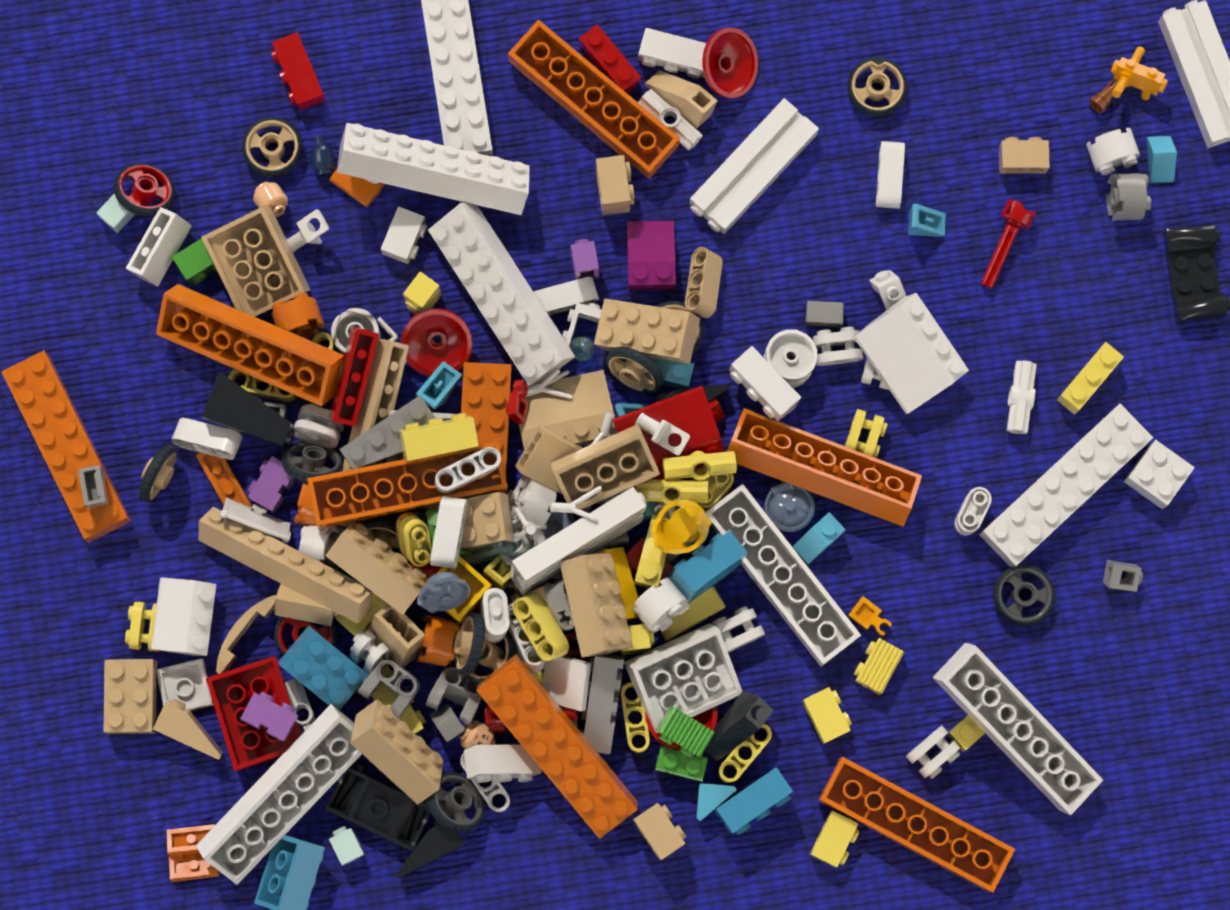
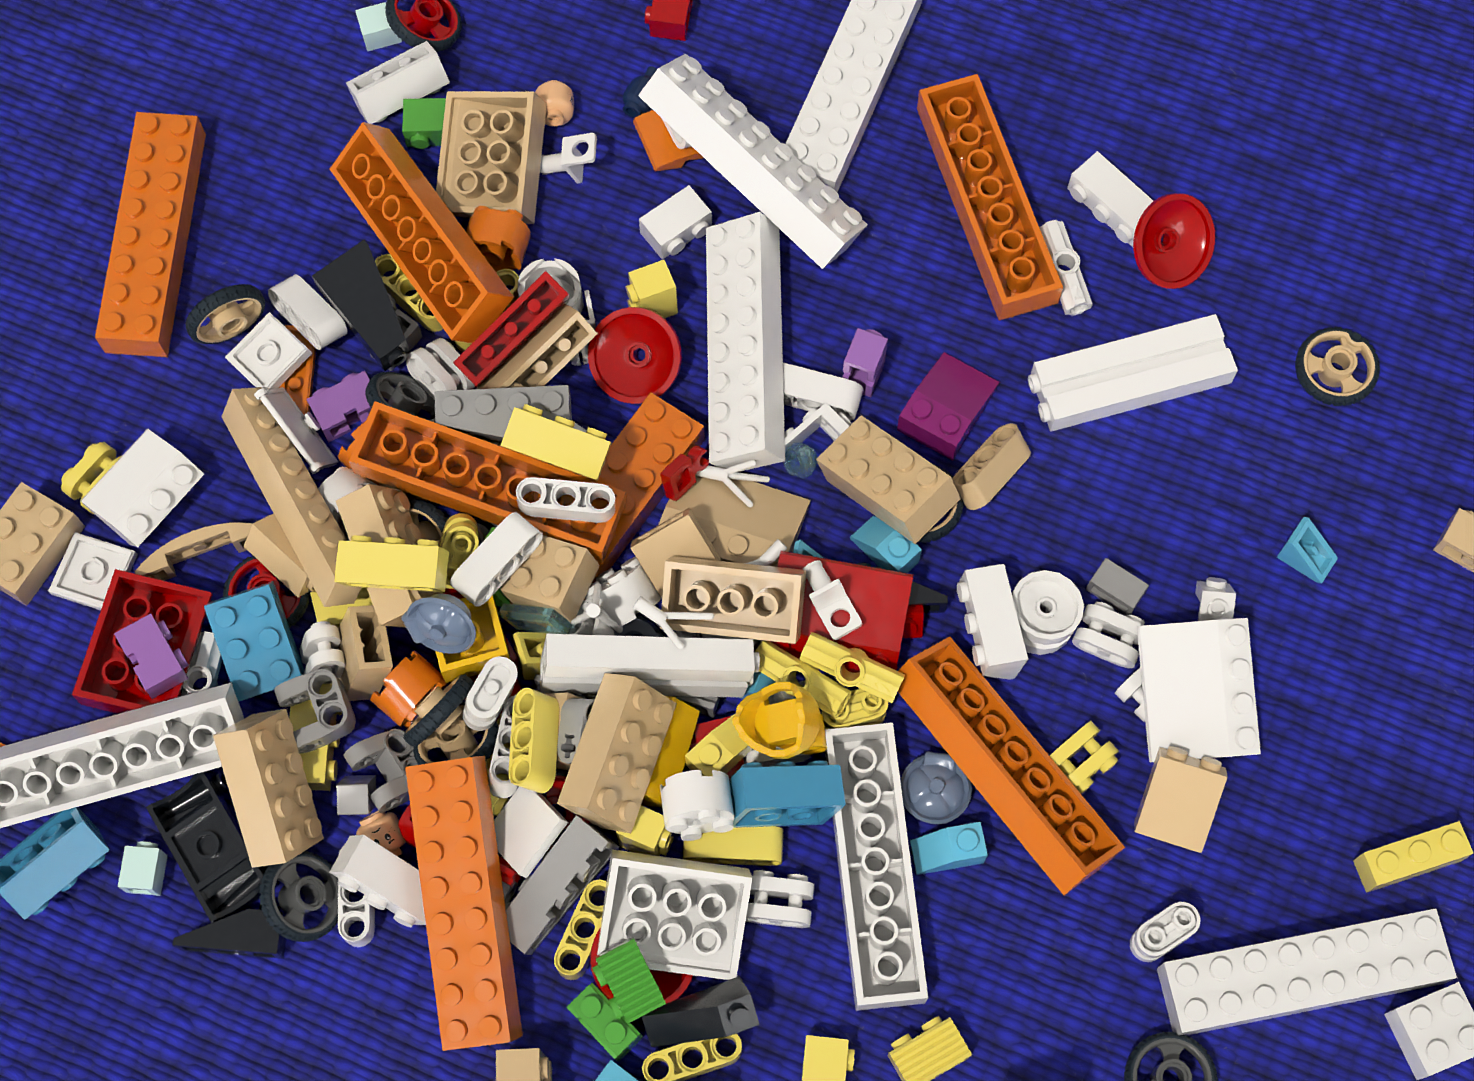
camera: 35 degrees right, 10 degrees down
(93, 486) = (141, 283): light grey piece -> none
(183, 726) = (57, 615): tan slope -> none
(199, 481) = (268, 354): none -> white tile
(288, 133) = (594, 62): tan wheel -> none
(391, 575) = (392, 564): none -> light yellow brick
(439, 385) = (605, 405): medium azure slope -> none
(609, 59) = (1034, 164): red brick -> none
(613, 185) = (953, 298): tan brick -> none
(634, 370) = (843, 516): wheel -> none
(688, 98) = (1101, 255): tan slope -> none
(866, 614) = (952, 981): light orange plate -> none
(890, 174) = (1294, 474): white beam -> none
(937, 426) = (1181, 798): none -> tan brick
(1015, 218) = (1426, 609): red piece -> none
(1021, 397) = (1309, 829): white piece -> none

